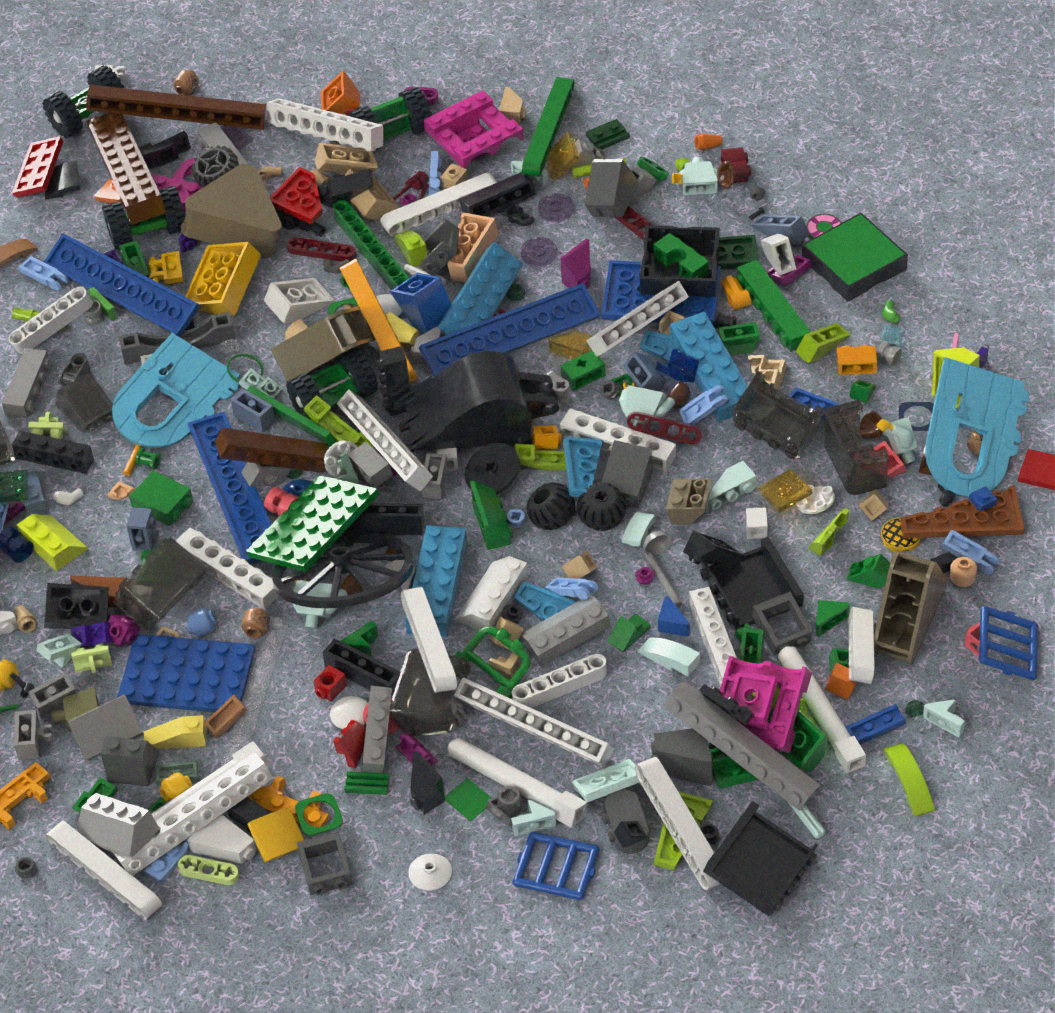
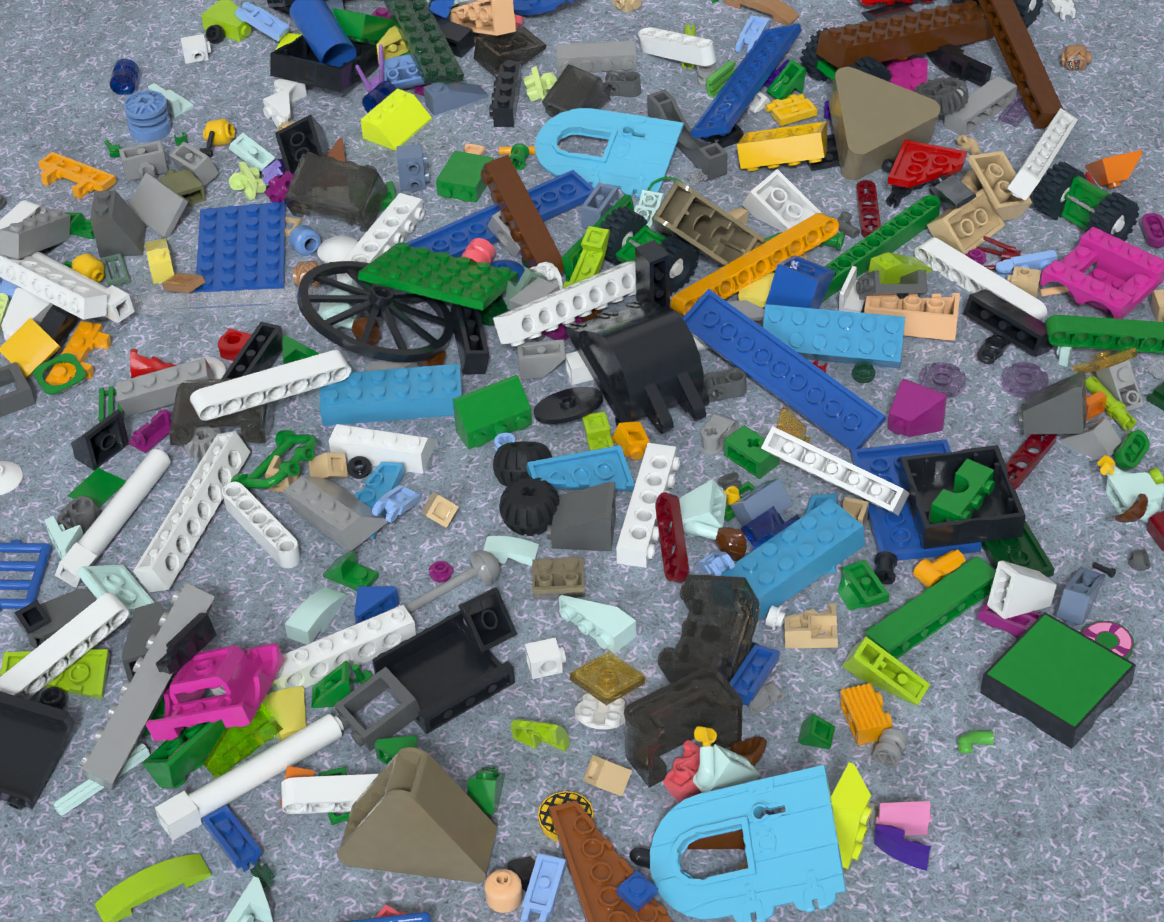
camera: 75 degrees right, 5 degrees down
(68, 498) = (454, 120): white arm -> none
(223, 601) = (335, 248): none -> white dish
(890, 335) = (926, 746): clear light blue plate -> none

